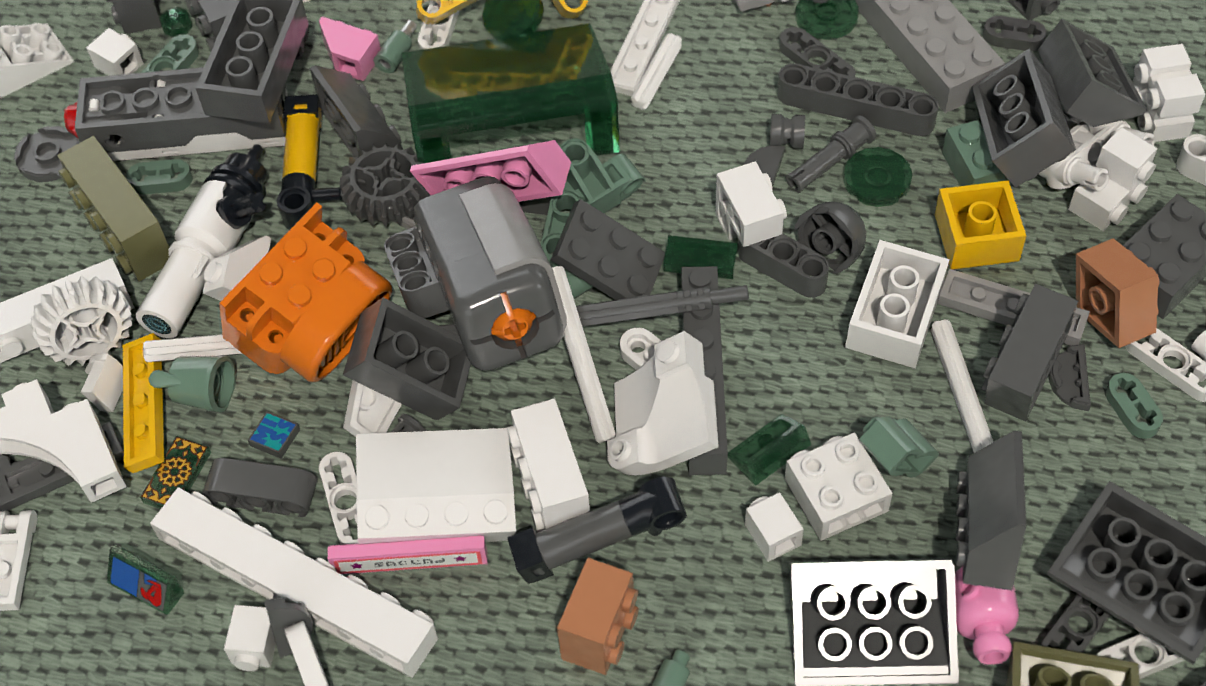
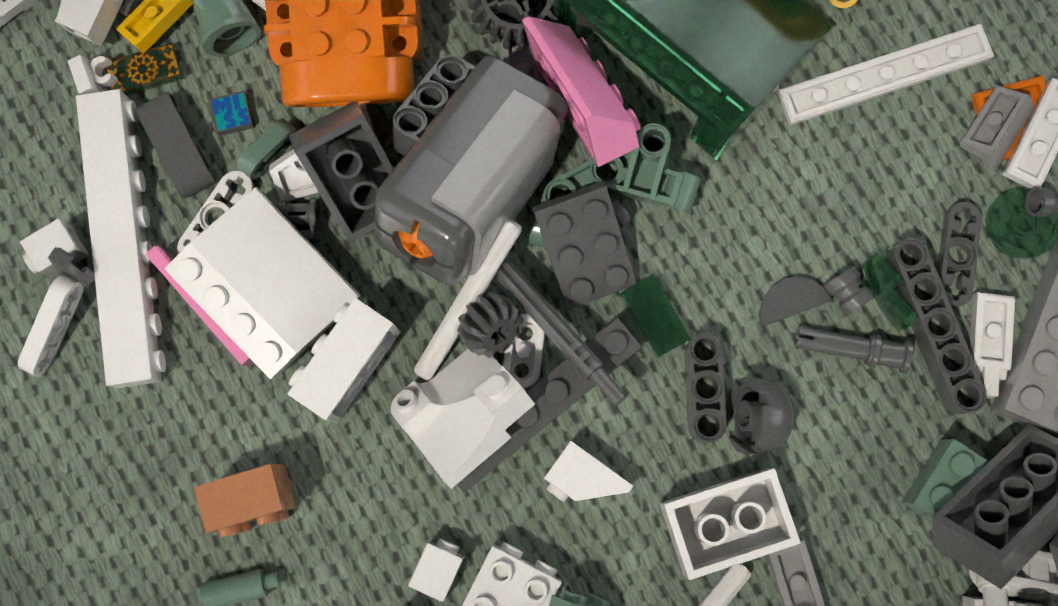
camera: 50 degrees right, 25 degrees up
(138, 509) = (89, 74): none -> white tile
(143, 580) = (44, 127): slope -> none
(329, 423) = (266, 149): none -> sand green beam
(612, 349) = (490, 324): none -> dark grey gear
(651, 509) = (322, 440): piece -> none
(656, 71) = (830, 123): white axle -> none
(748, 205) = (725, 327): white brick -> none
(769, 448) = (513, 509): clear green slope -> none
(782, 376) = (583, 477): none -> white slope
(818, 113) = (882, 281): none -> clear green slope
(877, 176) = (865, 404): clear green tile -> none
(887, 69) = (992, 338): none -> white hinge
(980, 224) = (871, 537): yellow brick -> none

